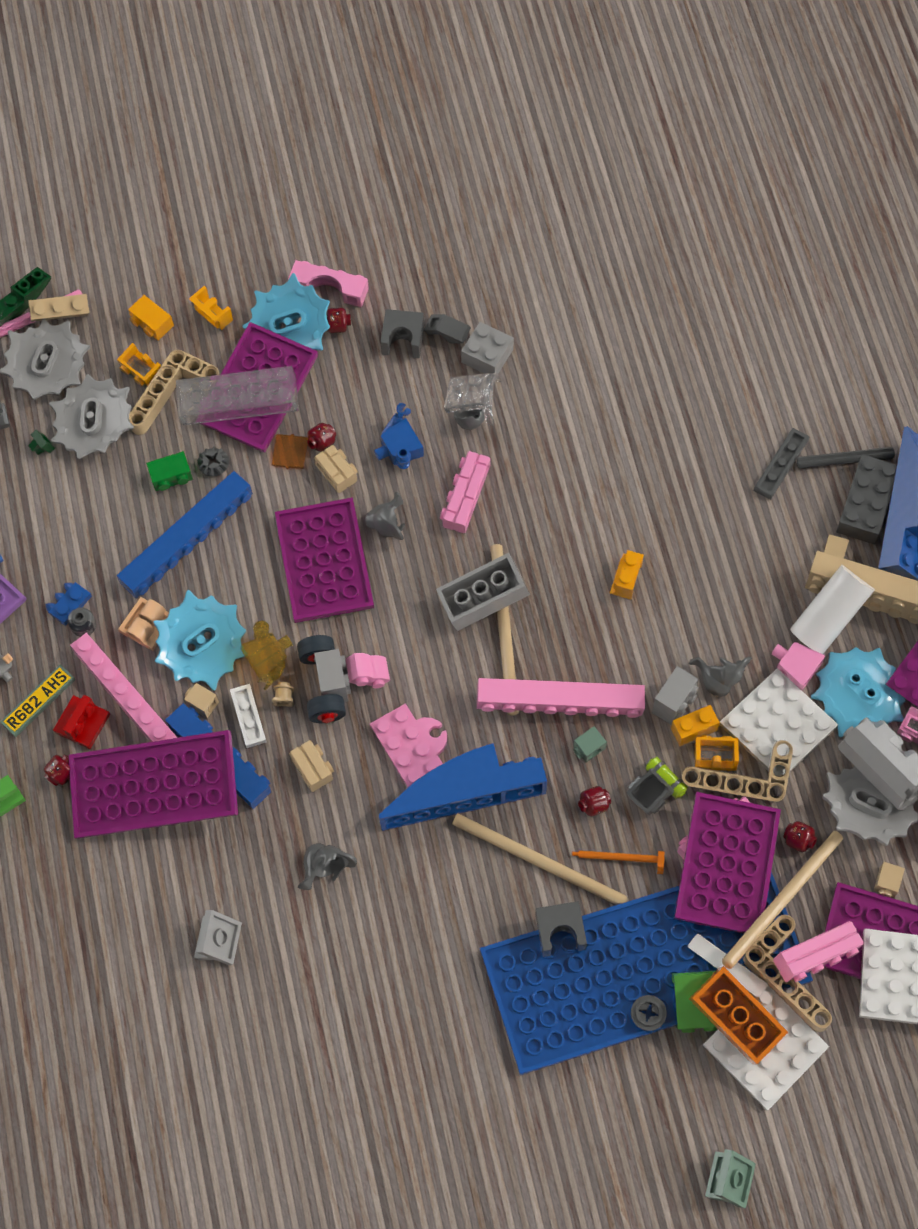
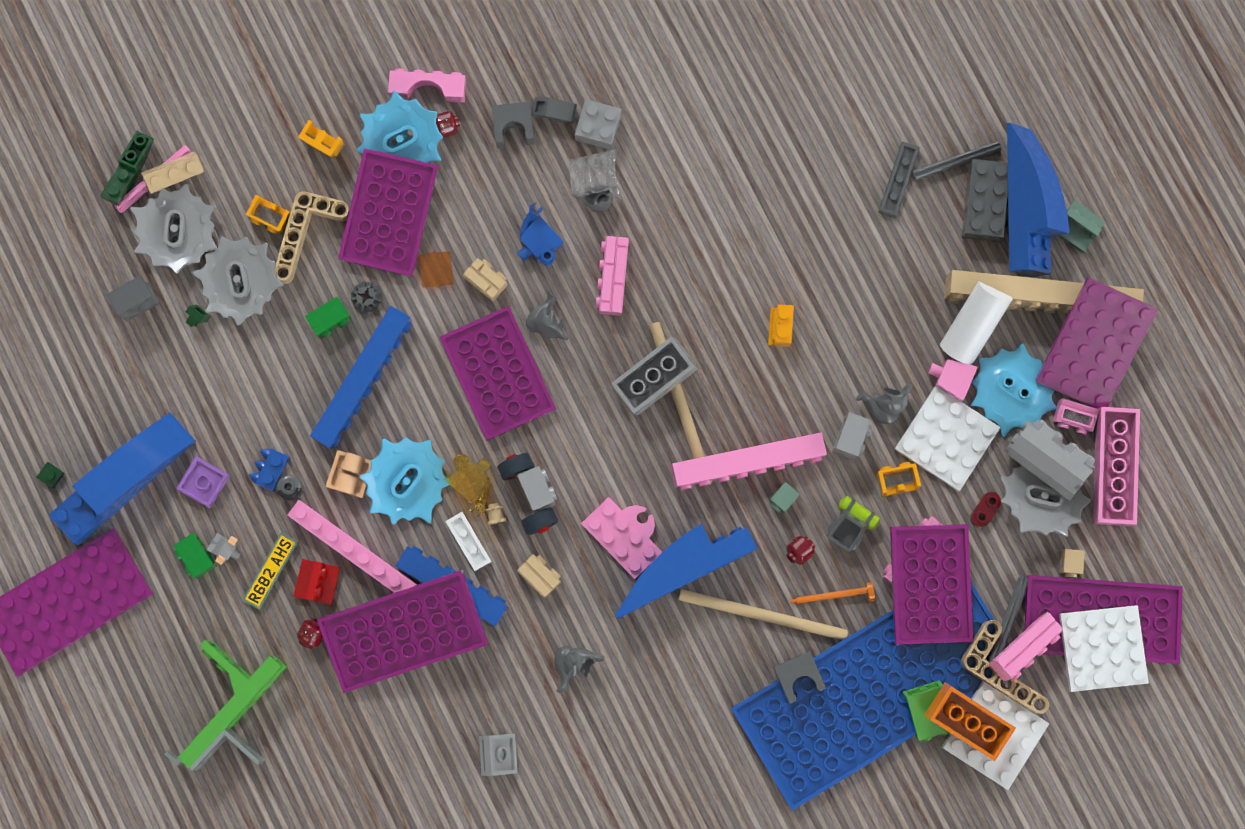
camera: 20 degrees left, 15 degrees up
(150, 317) = (264, 161): light orange brick -> none
(201, 700) = (421, 537): tan brick -> none
(237, 395) = (373, 229): clear brick -> none
(321, 437) = (463, 250): dark red head -> none
(367, 670) = (567, 475): bright pink brick -> none
(657, 1007) = (897, 726): dark grey gear -> none
(695, 725) = (874, 458): light orange brick -> none
(715, 955) = (949, 674): white sticker -> none
(744, 781) = (929, 501): tan beam -> none
(781, 900) = (985, 605): tan piece -> none
(800, 836) = (987, 540): dark red head -> none
(805, 804) = (985, 508): none -> dark red plate
(810, 917) = (1009, 617): none -> dark grey axle
(836, 546) = (965, 258): tan brick -> none

